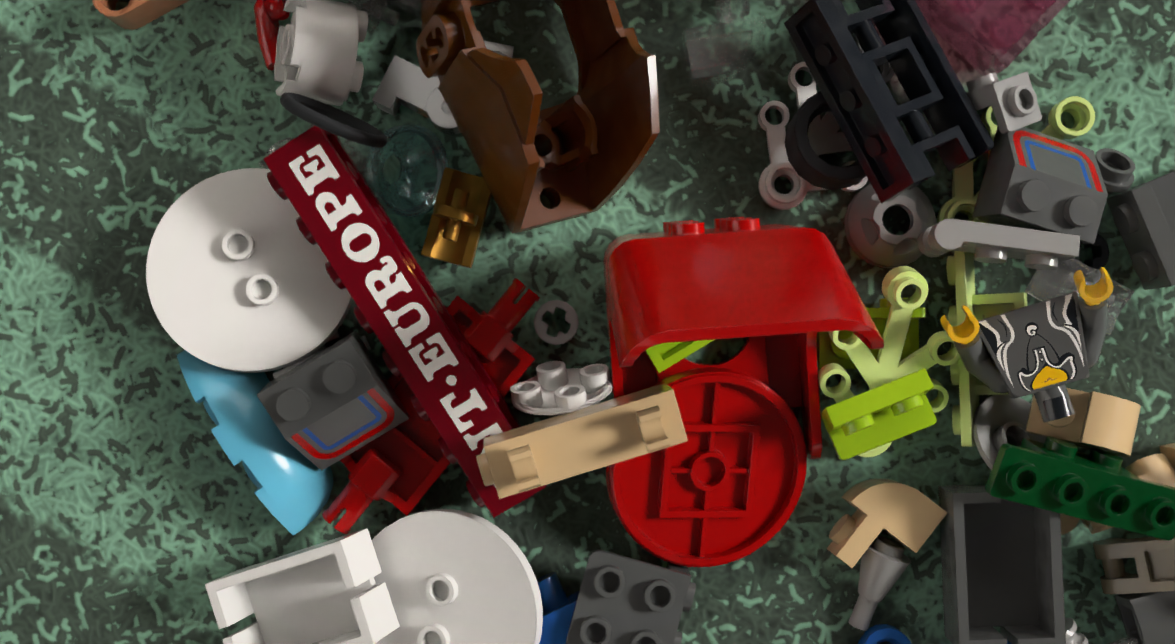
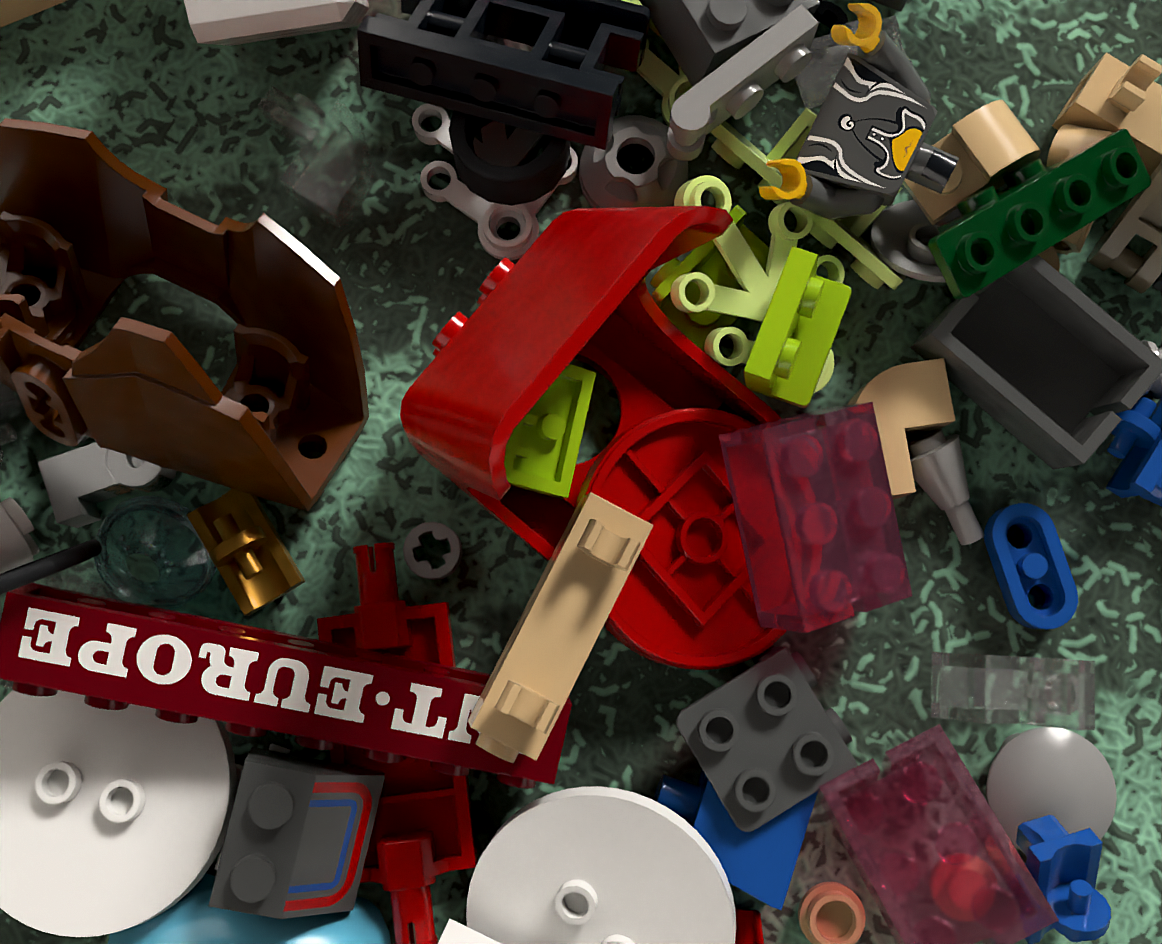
camera: 45 degrees left, 5 degrees down
(561, 389) = (496, 605): white dish -> none
(783, 524) = (816, 517): none -> clear pink piece

